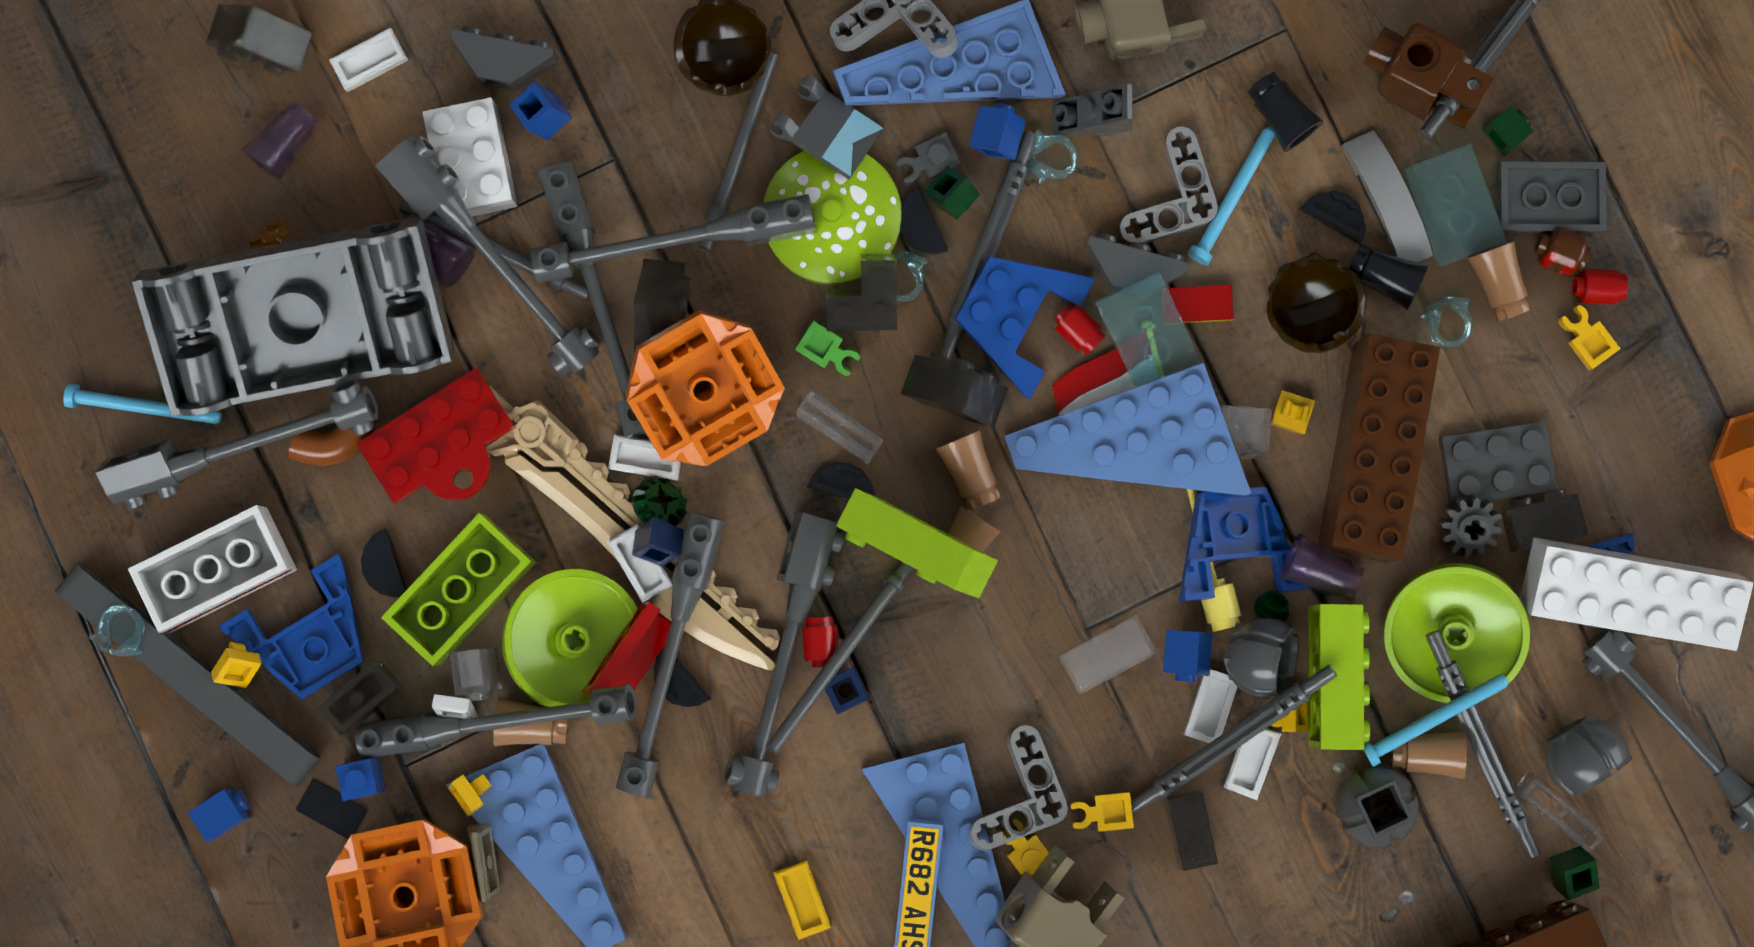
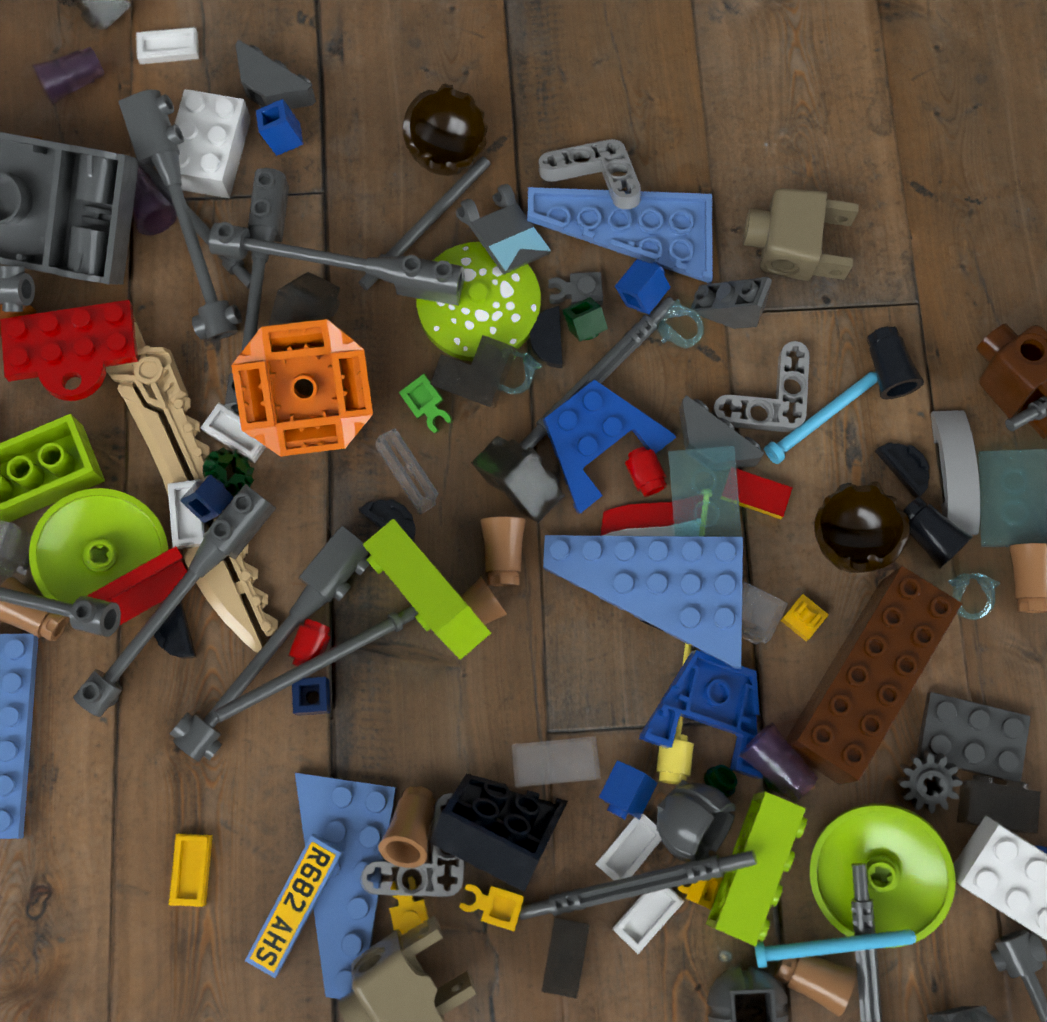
camera: 20 degrees right, 10 degrees down
(997, 775) = (409, 830): none -> medium nougat plant
(1081, 740) = (497, 828): none -> black wedge

